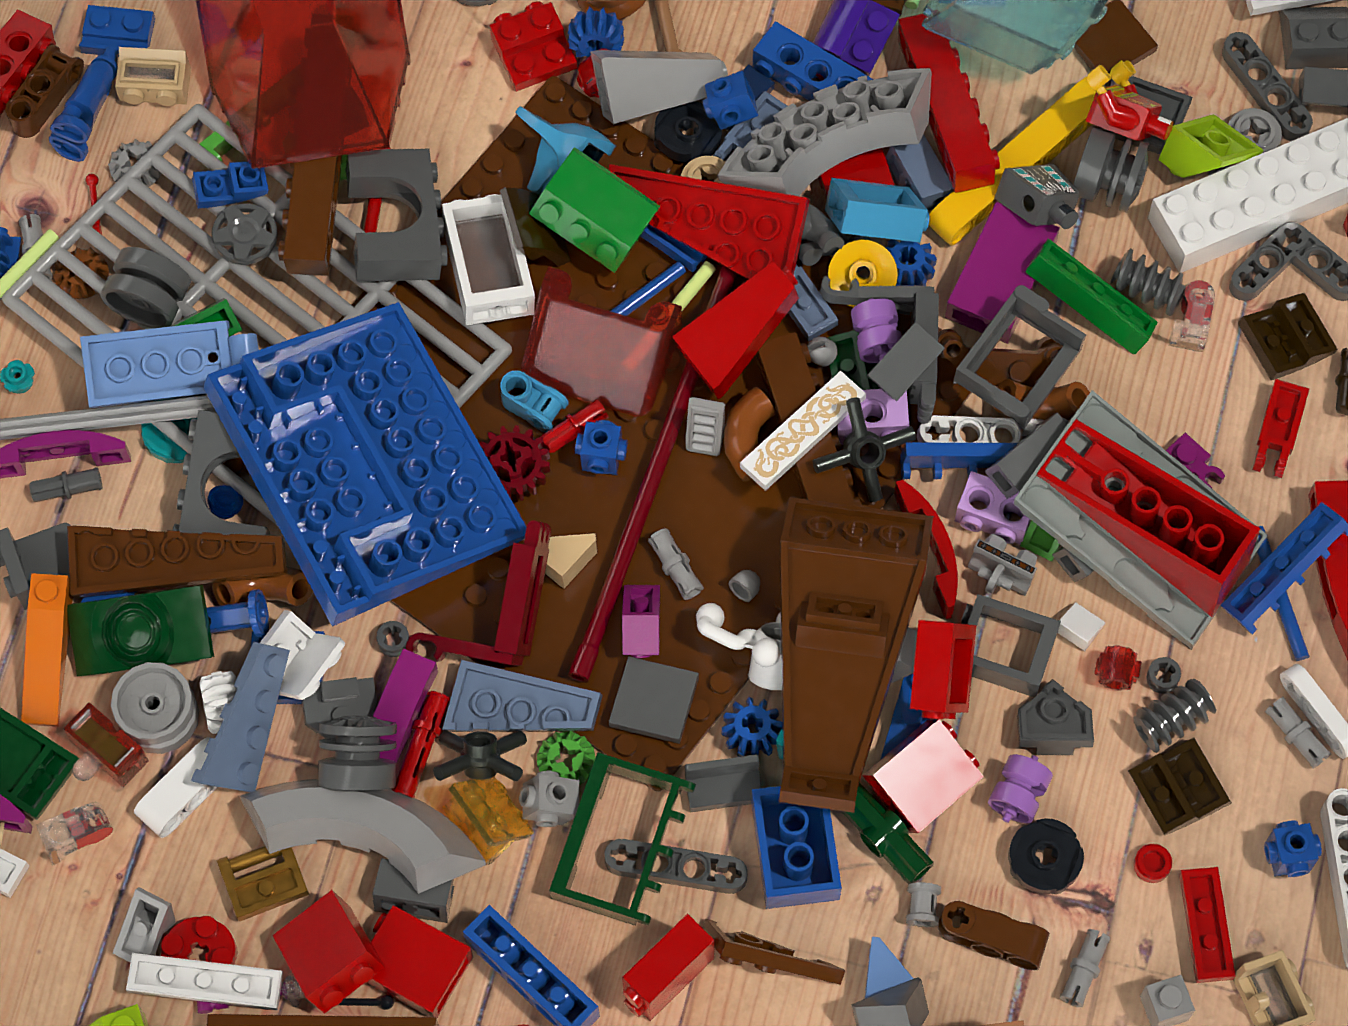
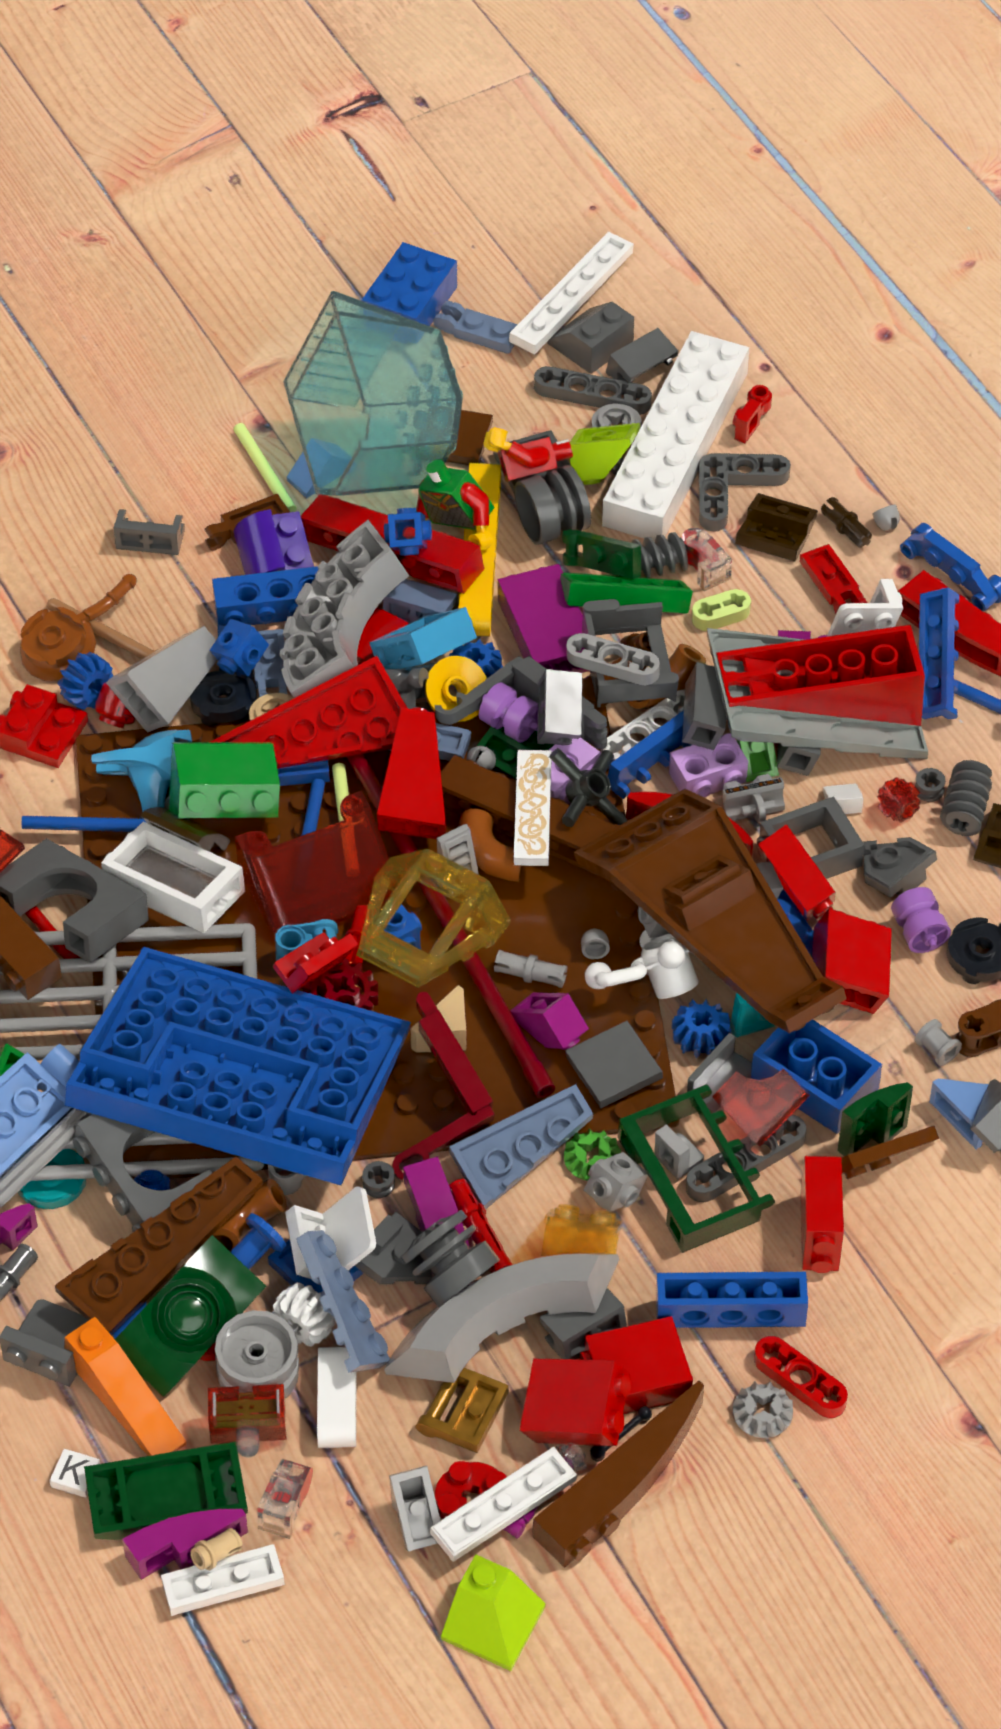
camera: 45 degrees left, 15 degrees down
(472, 152) = (80, 823): none -> blue bar
(480, 755) = (536, 1192): pearl dark grey bar -> none
(503, 418) = (313, 960): none -> red bracket
(624, 816) = (676, 1151): none -> light grey bracket
(670, 436) = (478, 906): none -> clear yellow windscreen
(717, 835) = (761, 1104): none -> clear red tile
(808, 930) = (875, 1117): none -> dark green slope
(888, 837) = (866, 1021): dark green piece -> none
(944, 105) = (395, 531): none -> blue brick
(987, 339) = (619, 670): none -> light grey beam
(1026, 106) = (455, 500): none -> torso
(1039, 195) = (525, 552): dark grey torso -> none
(1105, 246) = (602, 554): none -> dark green plate
(1160, 374) = (721, 609): none -> yellowish green beam
(1252, 496) = (878, 614): none -> white bracket

